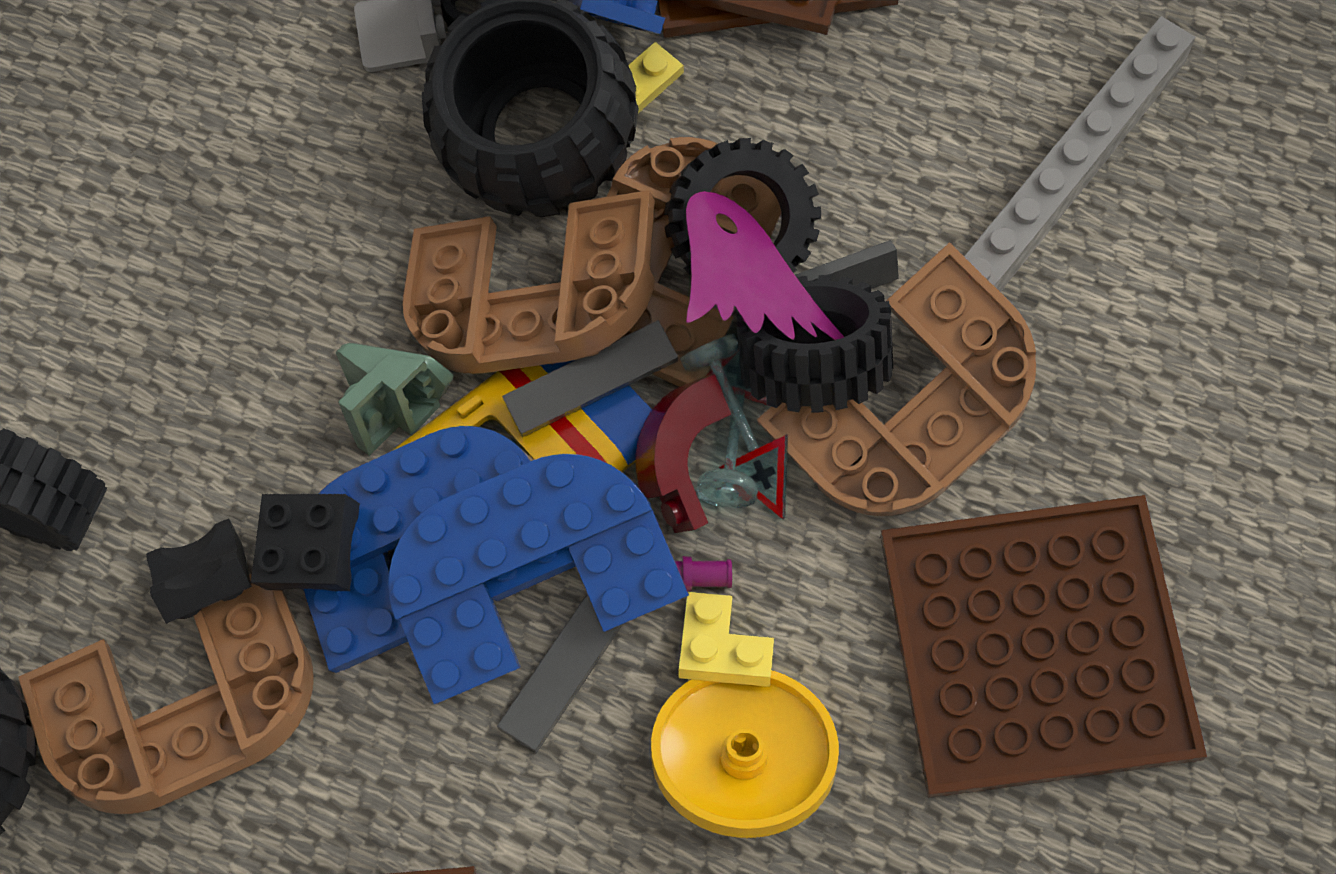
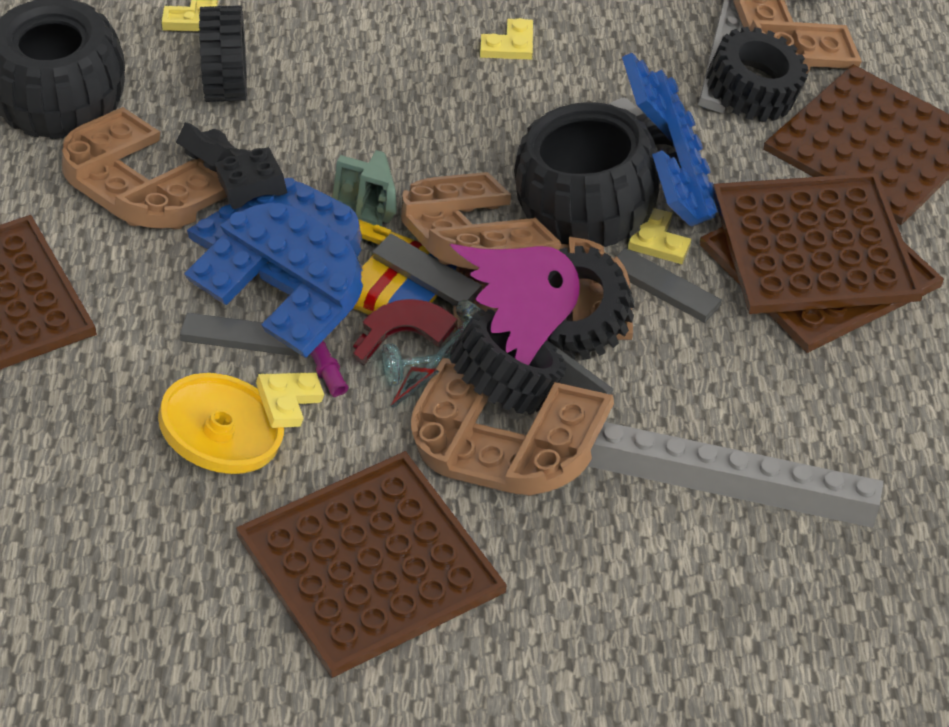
camera: 60 degrees right, 20 degrees down
(169, 95) = (514, 45): none -> light yellow plate
(718, 104) = (669, 286): none -> dark grey tile

